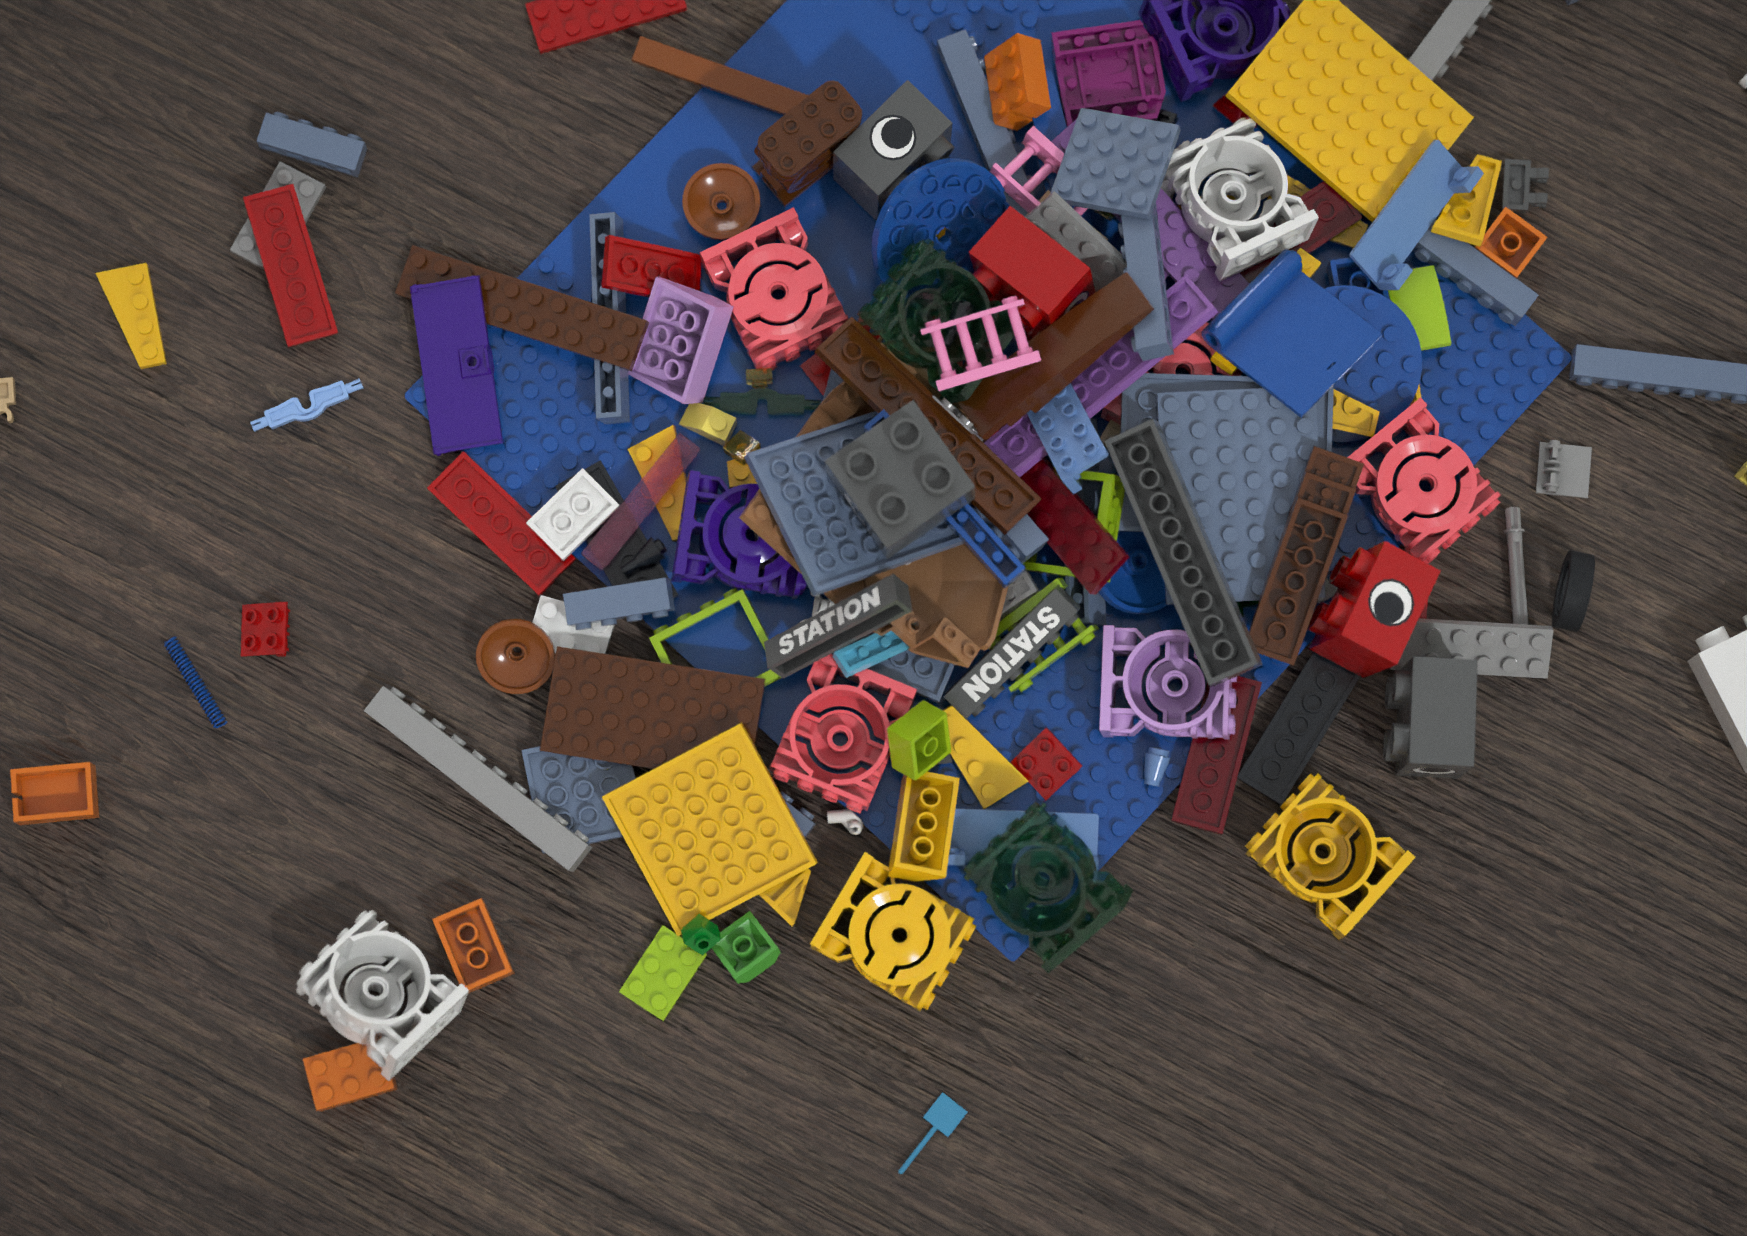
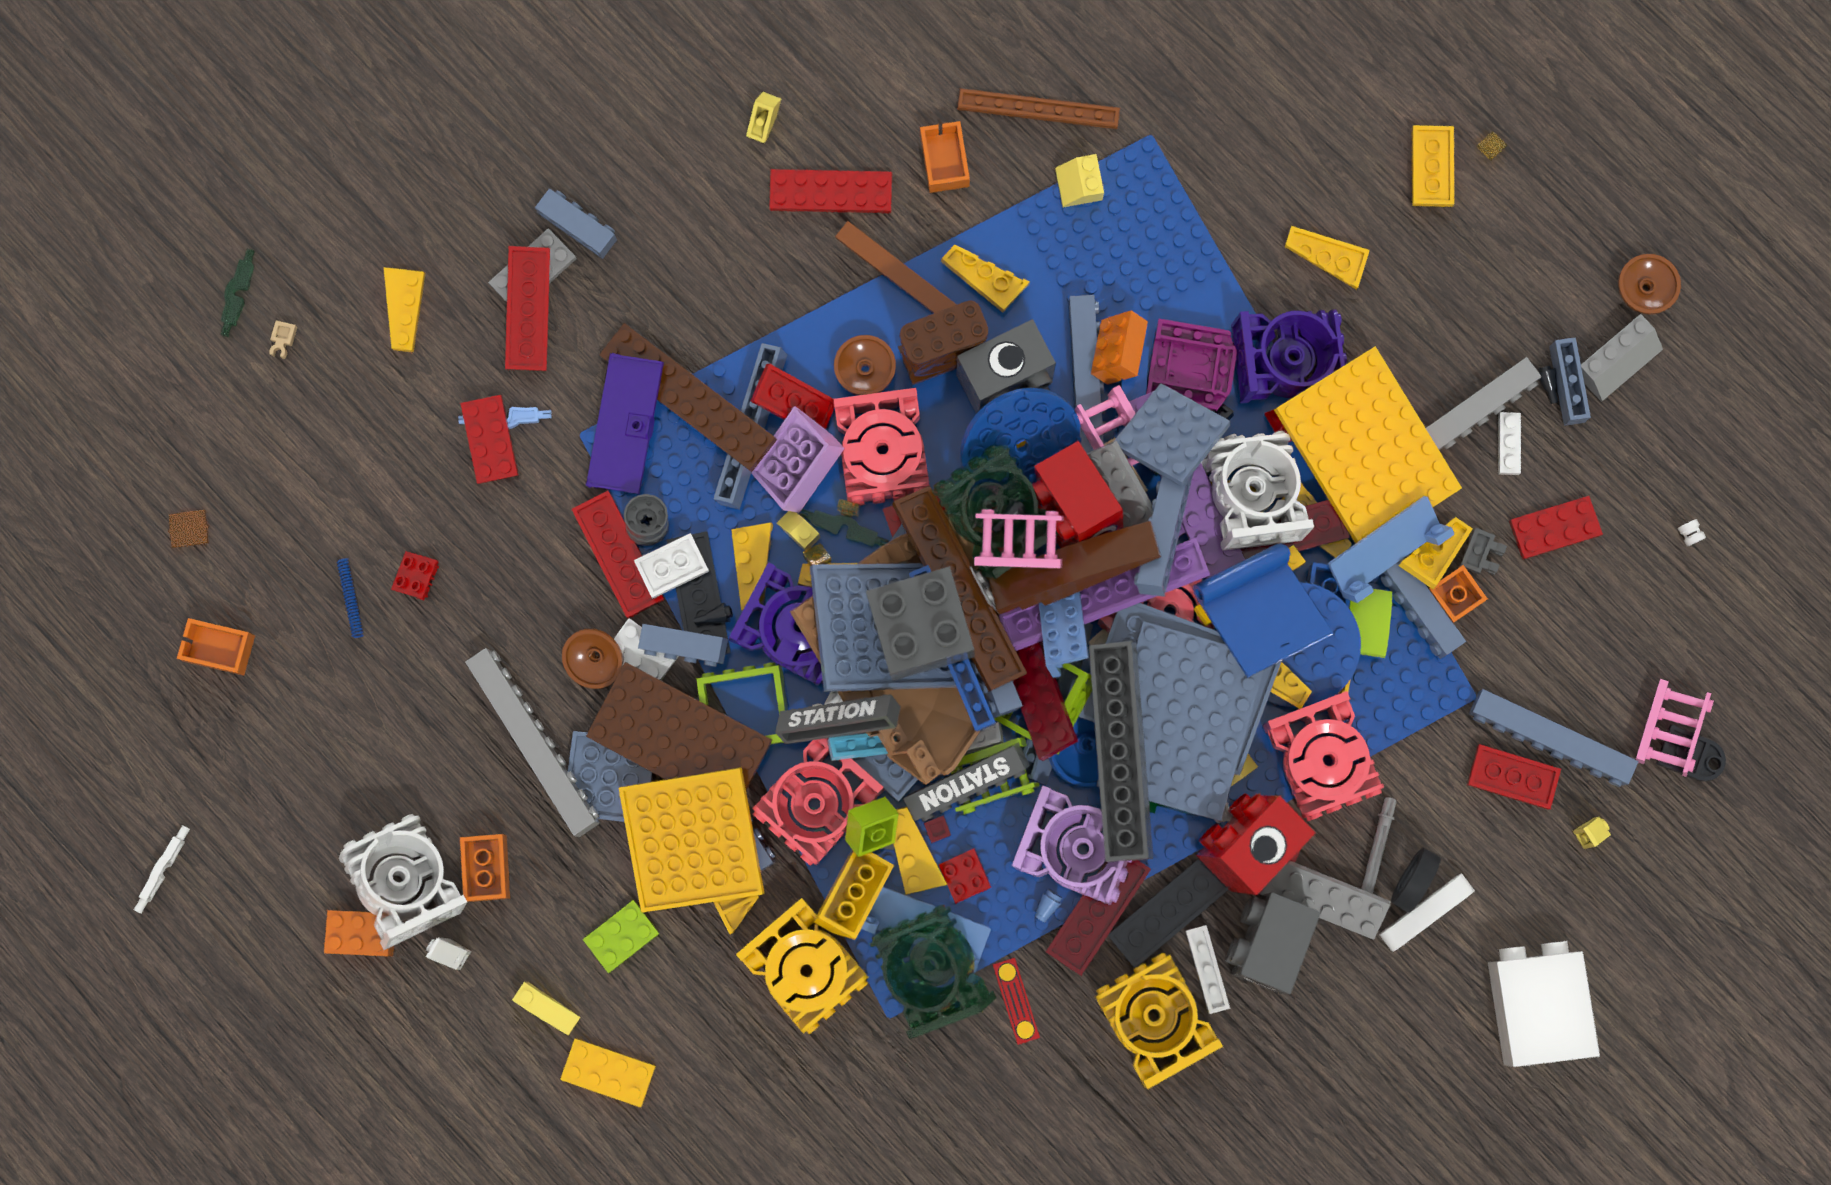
camera: 25 degrees right, 0 degrees up
(79, 1087) = (156, 876): none -> white piece
(298, 437) = (489, 439): none -> red plate
(465, 1059) = (447, 953): none -> white slope
(527, 457) = (649, 509): none -> dark grey wheel
(604, 1086) = (546, 1008): none -> light yellow slope
(640, 501) = (726, 572): clear pink plate -> none
(700, 934) = (658, 917): green plate -> none
(703, 1137) = (608, 1072): none -> yellow plate
(746, 949) = (688, 939): bright green slope -> none
(834, 53) = (991, 282): none -> yellow wing
(847, 818) = (800, 865): white arm -> none
(944, 1116) = (795, 1119): dark azure piece -> none
(995, 720) = (937, 829): none -> dark red plate
(1155, 891) = (1016, 1001): none -> sticker
(1304, 554) = (1215, 783): reddish brown slope -> none
(1366, 778) = (1207, 969): none -> white plate
(1511, 47) = (1509, 443): none -> white plate
(1563, 469) = (1440, 782): light grey hinge -> none
(1598, 128) = (1555, 527): none -> red plate
(1598, 626) = (1426, 912): none -> white beam
(1646, 435) = (1514, 777): none -> red plate

